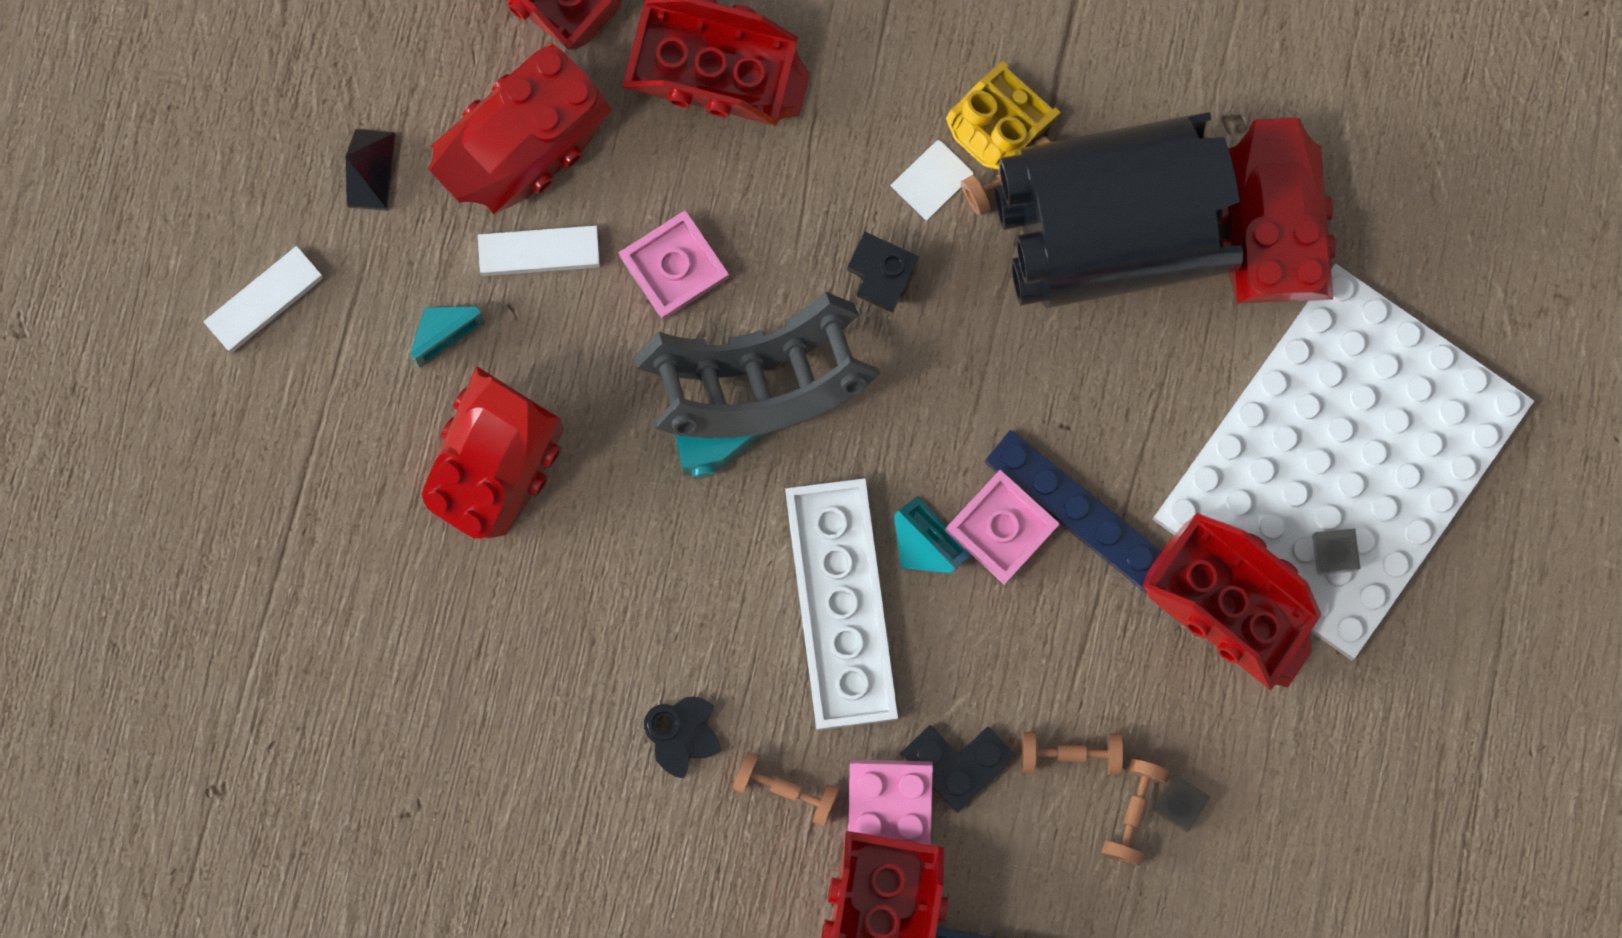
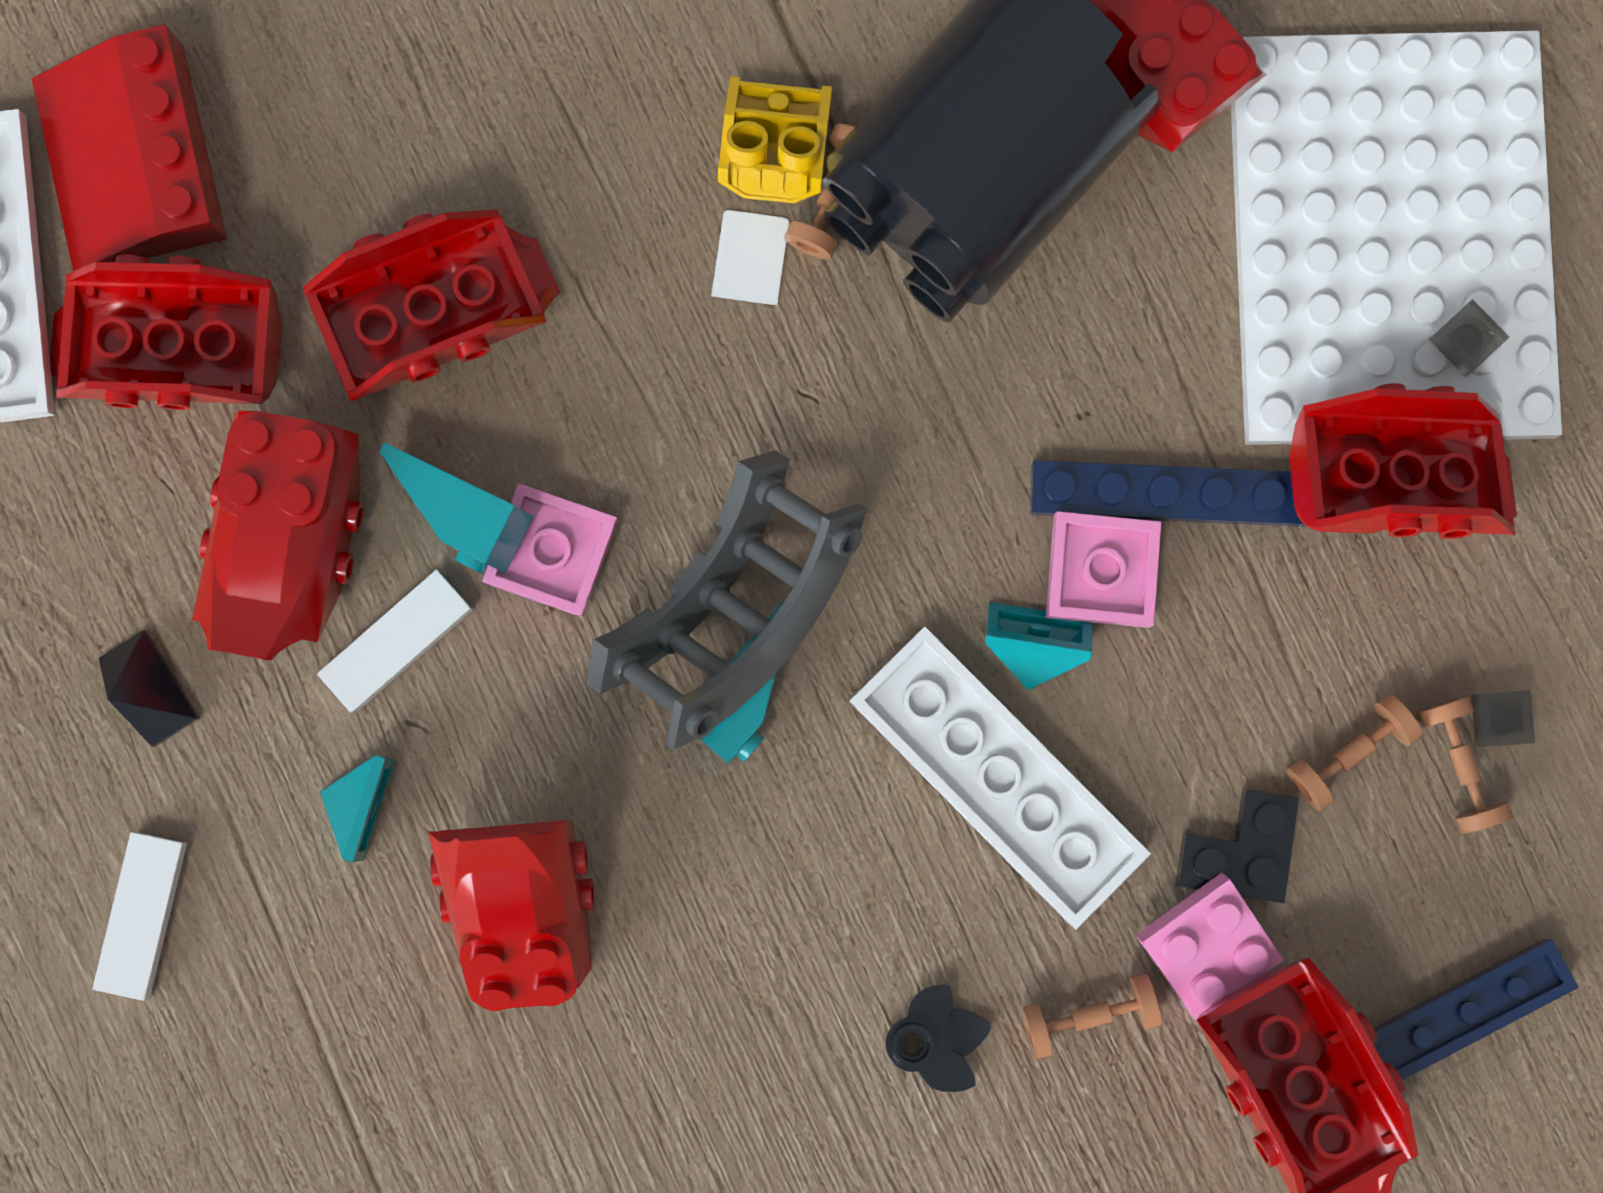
camera: 35 degrees left, 5 degrees up
(637, 203) = (460, 514): none -> teal slope
(884, 271) = (777, 391): black brick -> none

